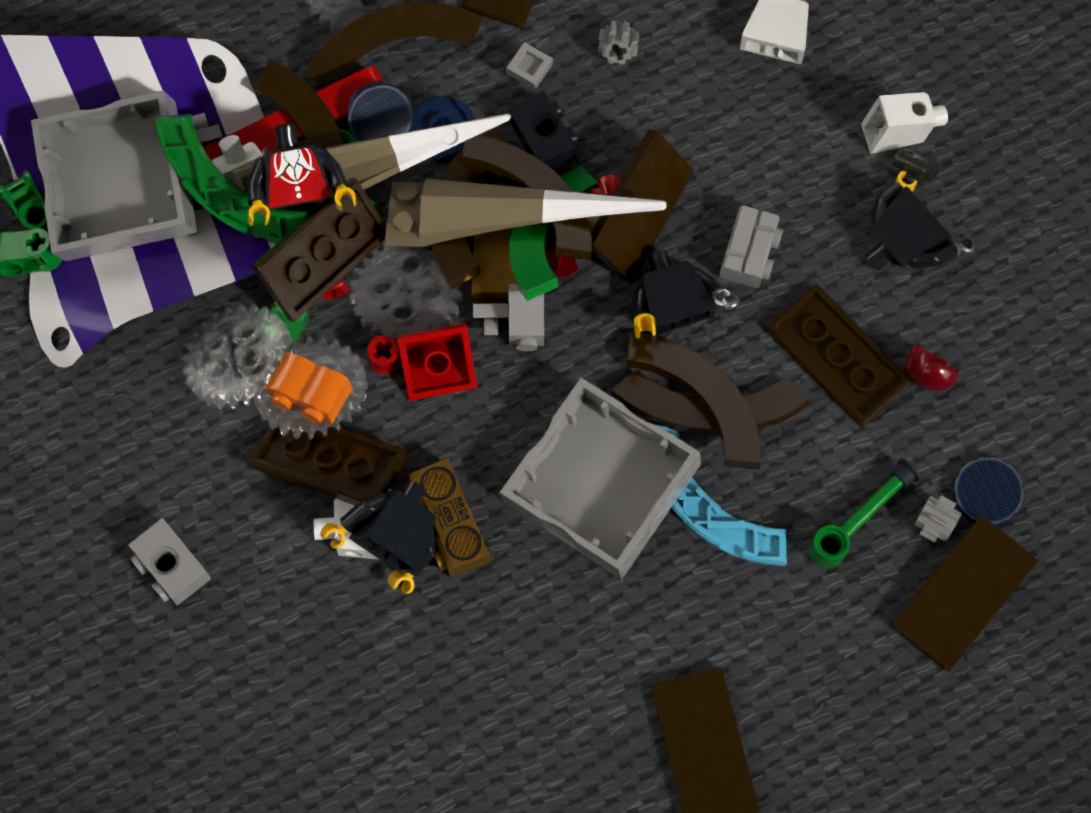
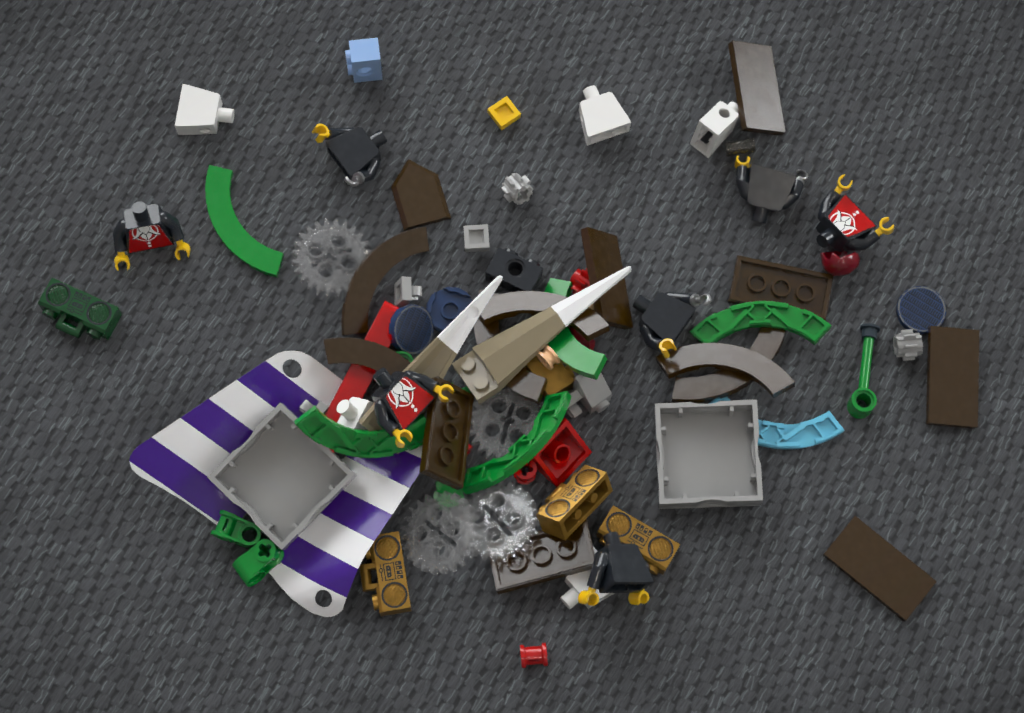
camera: 40 degrees left, 0 degrees up
(152, 363) = (392, 586): none -> pearl gold piece
(161, 543) = (483, 674): light grey brick -> none
(236, 561) = (533, 655): none -> red bush
(308, 388) = (505, 522): orange brick -> none
(397, 326) = (523, 450): none -> green tile
(407, 75) = (405, 293): none -> light grey tile
(407, 424) = (573, 502): none -> pearl gold piece
(500, 244) = (548, 357): none -> light nougat bush
(750, 247) = (685, 259): light grey brick -> none
(789, 367) = (761, 314): none -> green tile
(970, 330) = (845, 224): none -> torso
(986, 110) = (756, 88): none -> tile

